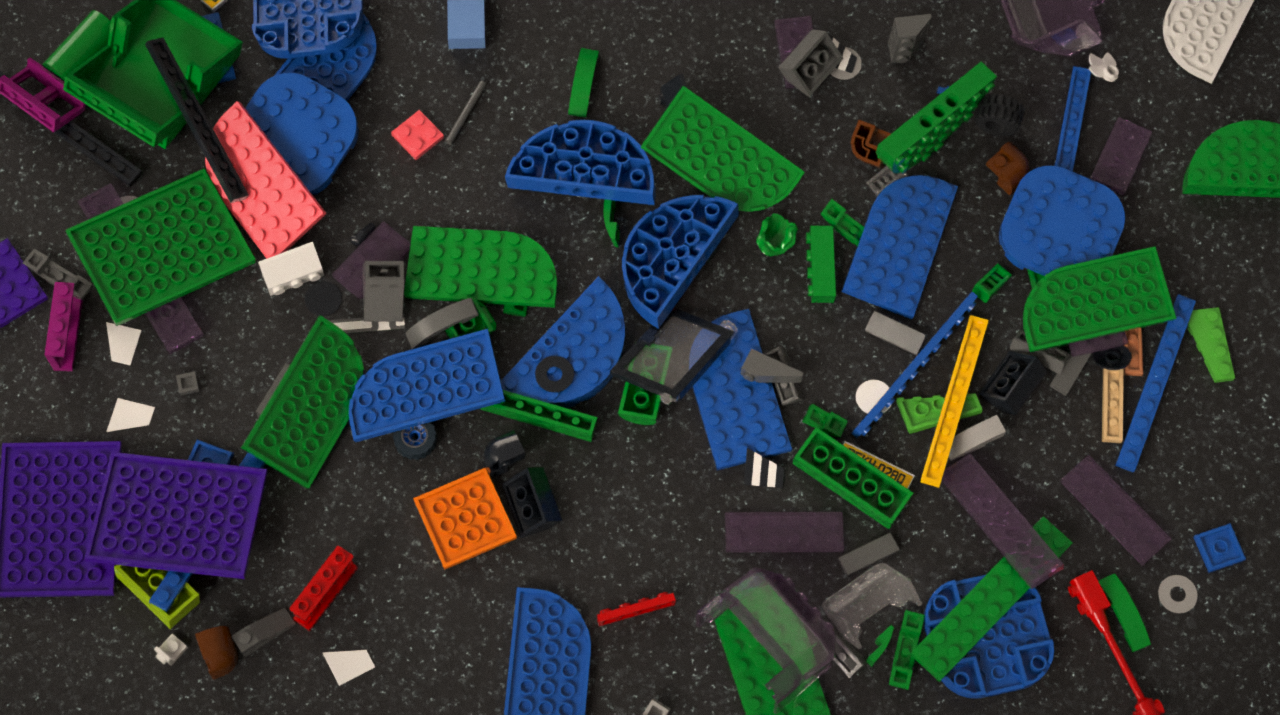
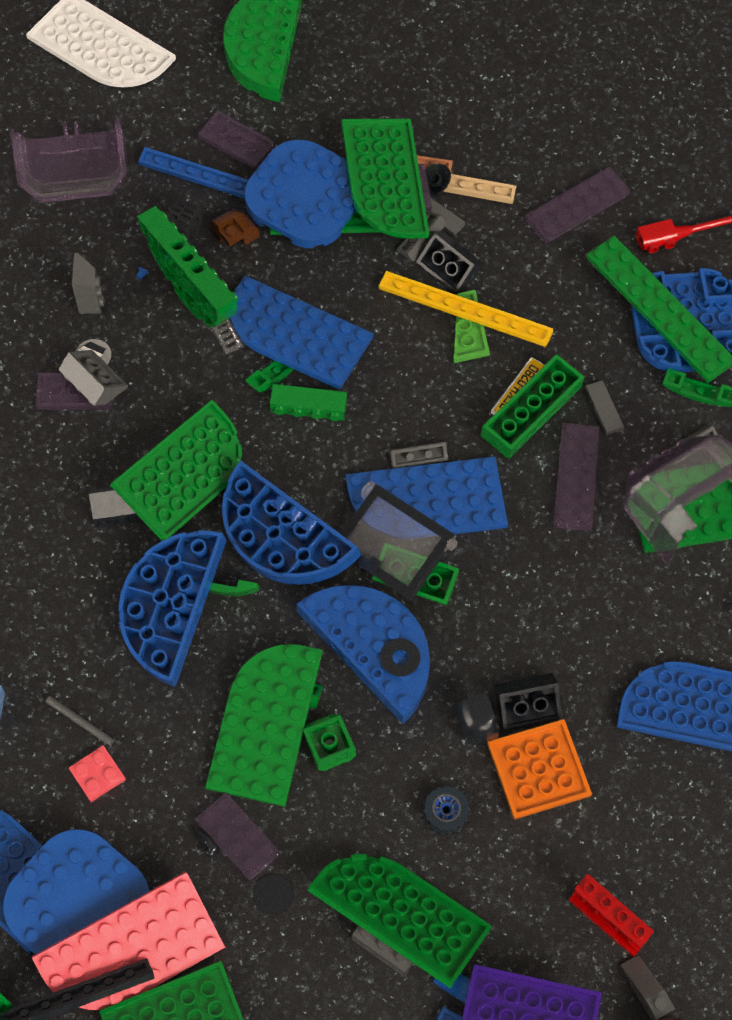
camera: 80 degrees left, 5 degrees down
(291, 269) = (241, 920): white slope -> none
(348, 664) = (684, 904): white sticker -> none
(358, 325) = (309, 848): sticker -> none
(383, 291) = (279, 823): dark grey slope -> none
(426, 386) = (397, 788): blue plate -> none
(440, 321) = (326, 767): dark grey slope -> none
(545, 415) = (436, 682): green brick -> none
(583, 82) = (68, 596): green slope -> none
(643, 606) = (647, 624): red plate -> none
(762, 471) = (515, 486): sticker -> none
(765, 369) = (414, 466): dark grey slope -> none
(776, 235) = (275, 436): green hair -> none
(827, 422) = (469, 424): green slope -> none
(865, 143) = (192, 338): reddish brown brick -> none
(867, 596) = (644, 415): clear windscreen -> none
(869, 394) = (448, 380): white sticker -> none
(882, 642) = (691, 405): green slope -> none
(895, 333) = (387, 351): slope -> none
(910, 372) = (423, 339): blue plate -> none
(976, 437) = (498, 292): light grey slope -> none
(983, 291) = (353, 273): green slope -> none
(1001, 521) = (592, 285): plate -> none
(1104, 67) = (143, 137): white plate -> none
(1126, 612) = (673, 210): green slope -> none
(1155, 384) = (469, 154): blue plate -> none
(1180, 581) = (668, 177): light grey piece -> none
(1211, 341) = (418, 105): bright green wing -> none
(1219, 548) = (619, 134): blue tile -> none

